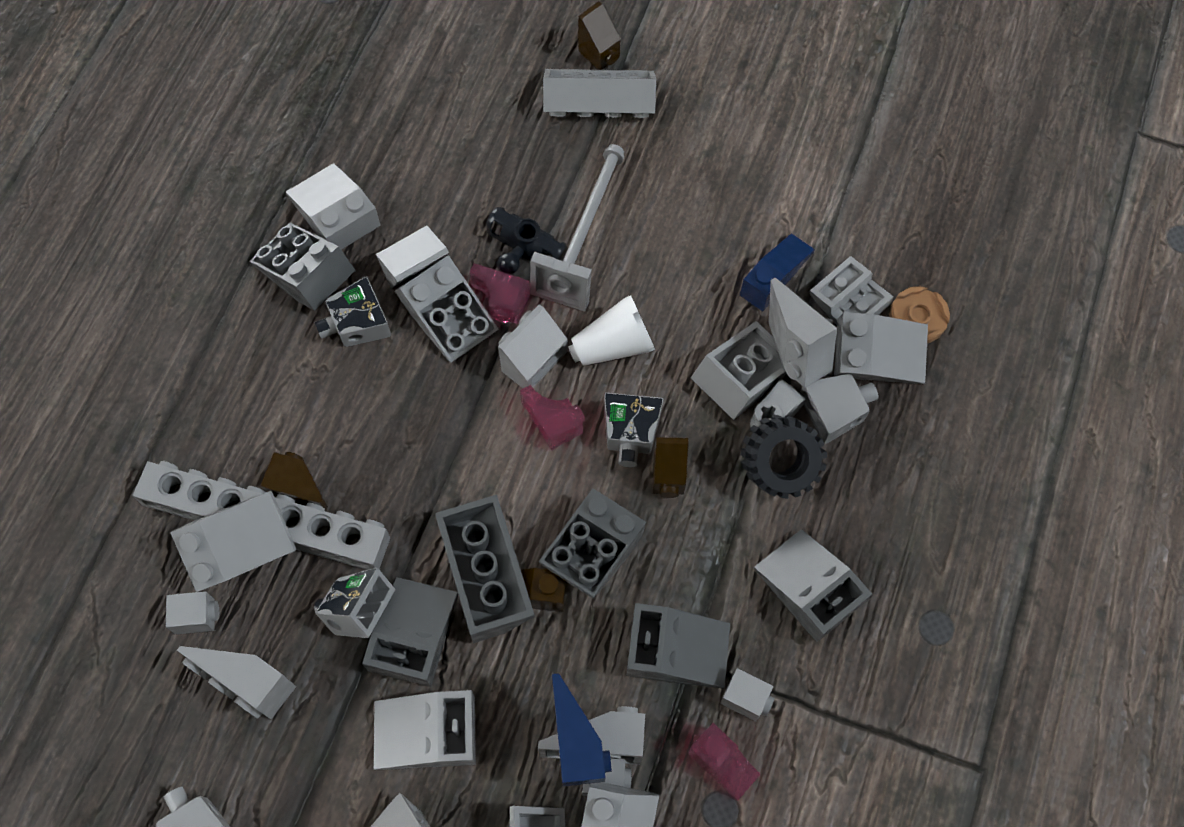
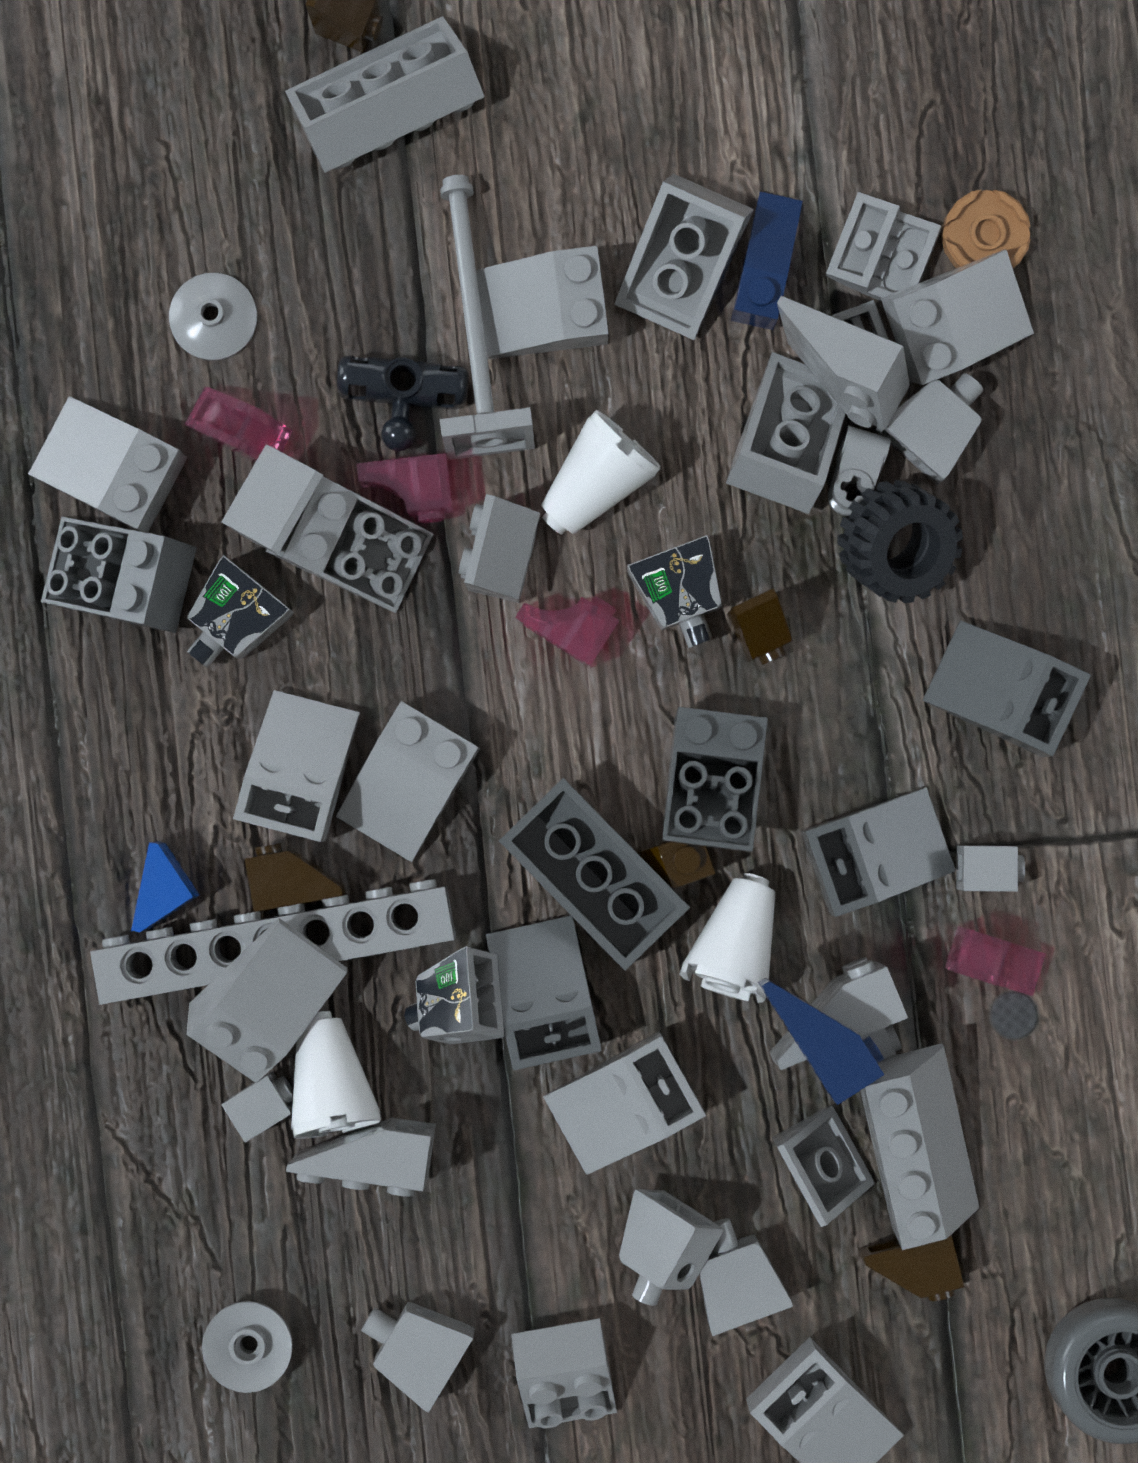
camera: 25 degrees left, 20 degrees up
(68, 768) = (243, 1368): none -> light grey dish
(214, 450) = (162, 888): none -> blue slope
(242, 617) = (329, 1082): none -> white cone
(337, 419) = (297, 766): none -> light grey slope
(402, 458) = (407, 781): none -> light grey slope
(418, 212) = (236, 424): none -> clear pink arch
(441, 169) = (228, 331): none -> light grey dish
(552, 653) = (736, 941): none -> white cone
(632, 233) = (543, 303): none -> light grey slope
(727, 244) = (683, 255): none -> light grey slope

